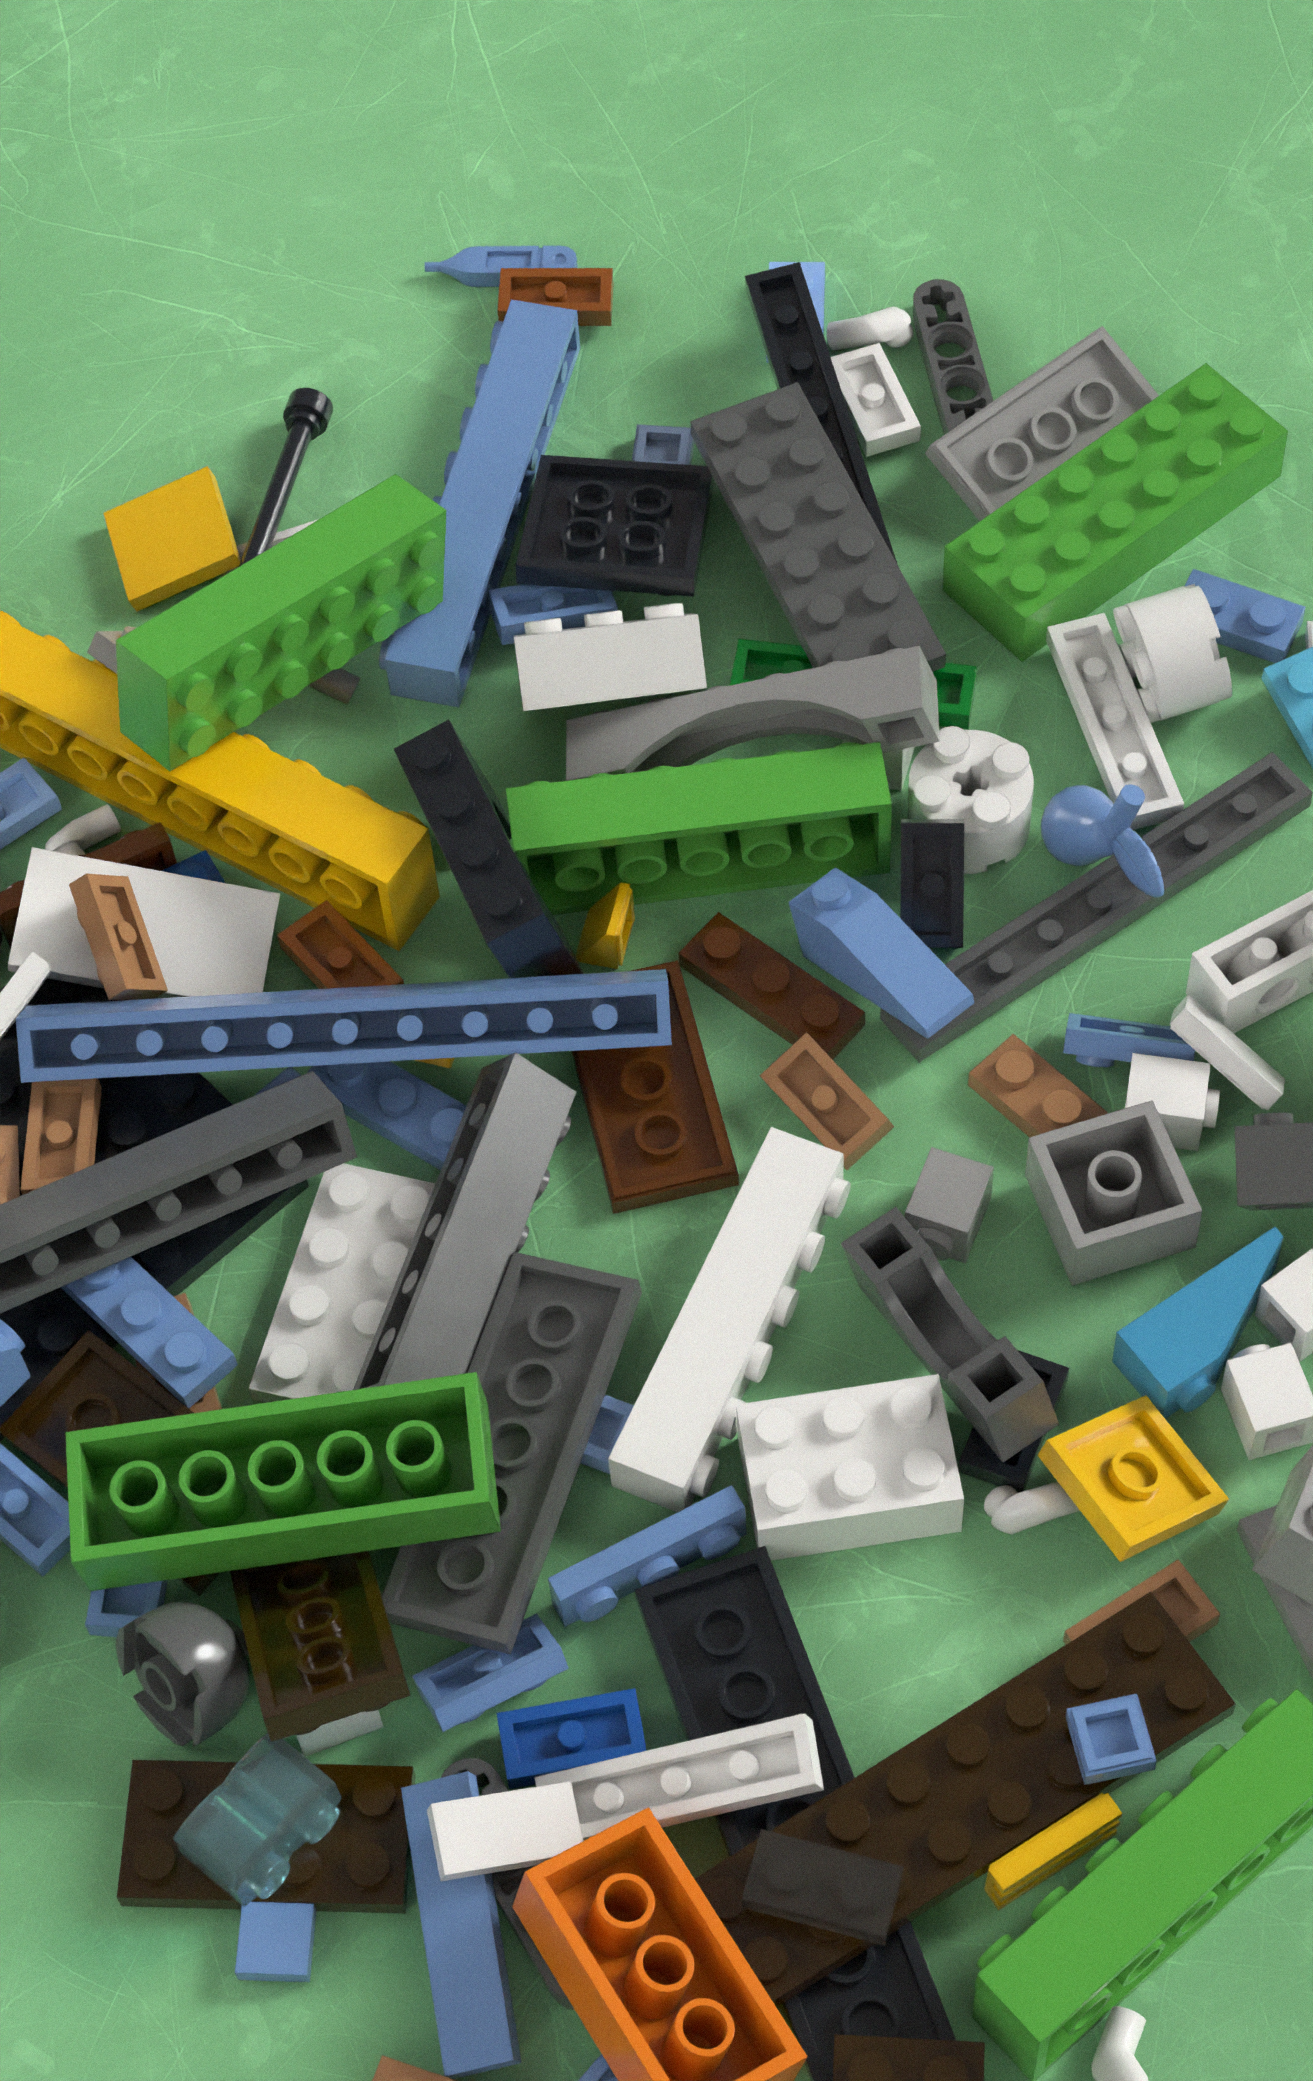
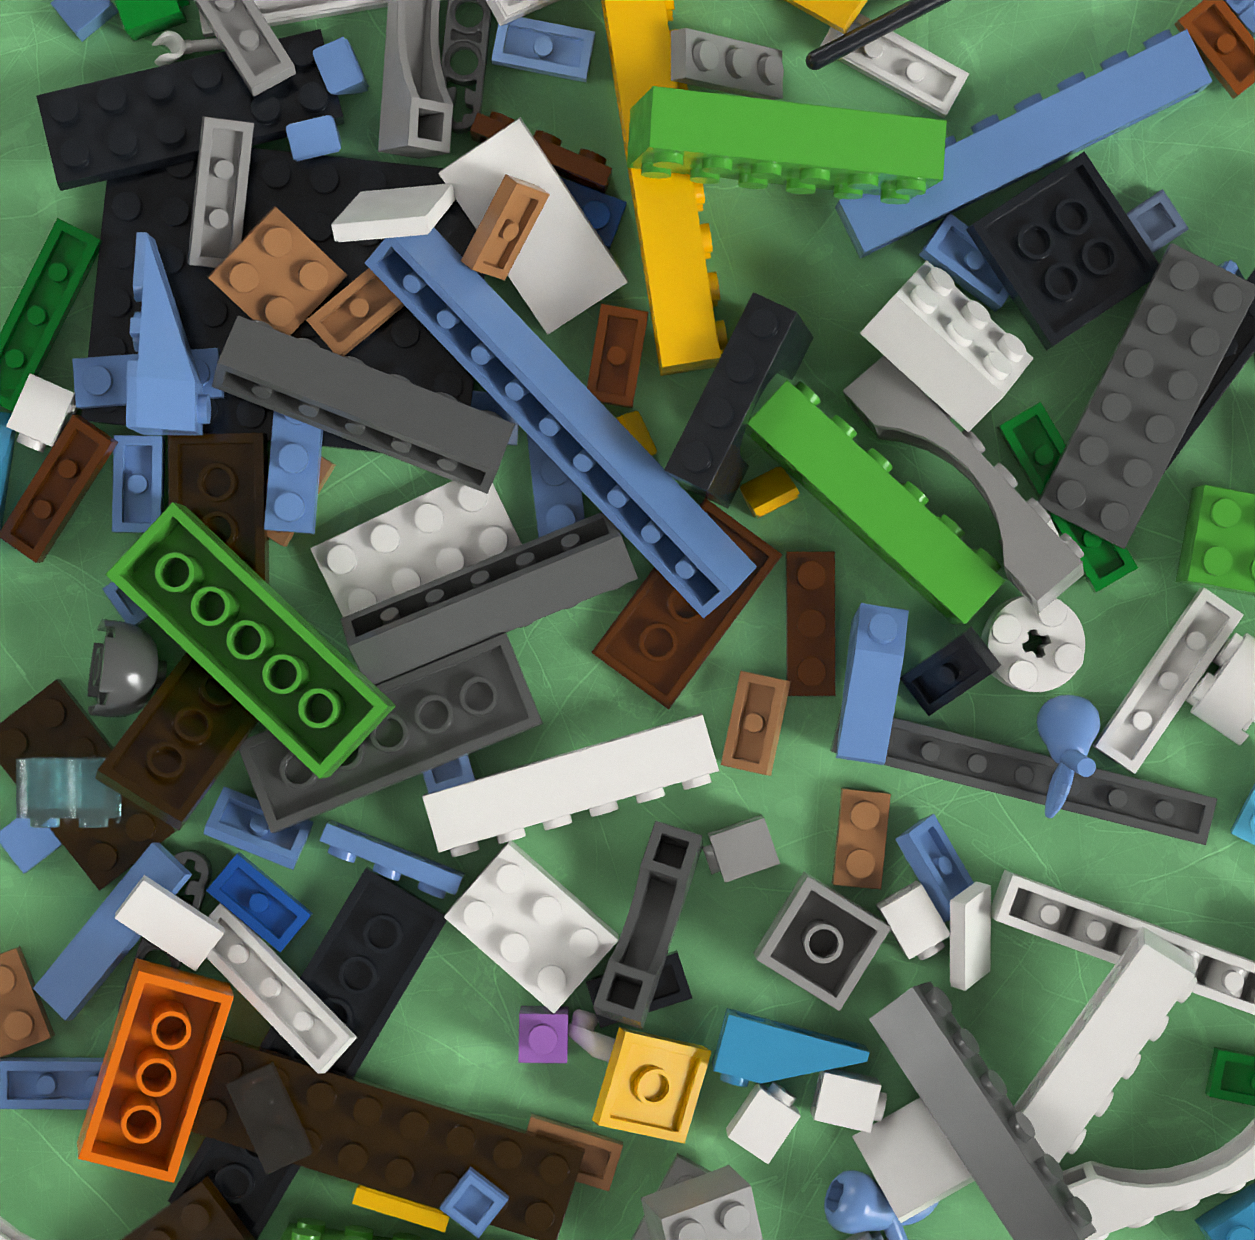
camera: 45 degrees right, 30 degrees up
(85, 832) = (572, 111): white arm -> none
(981, 1546) = (543, 1035): none -> medium lavender brick

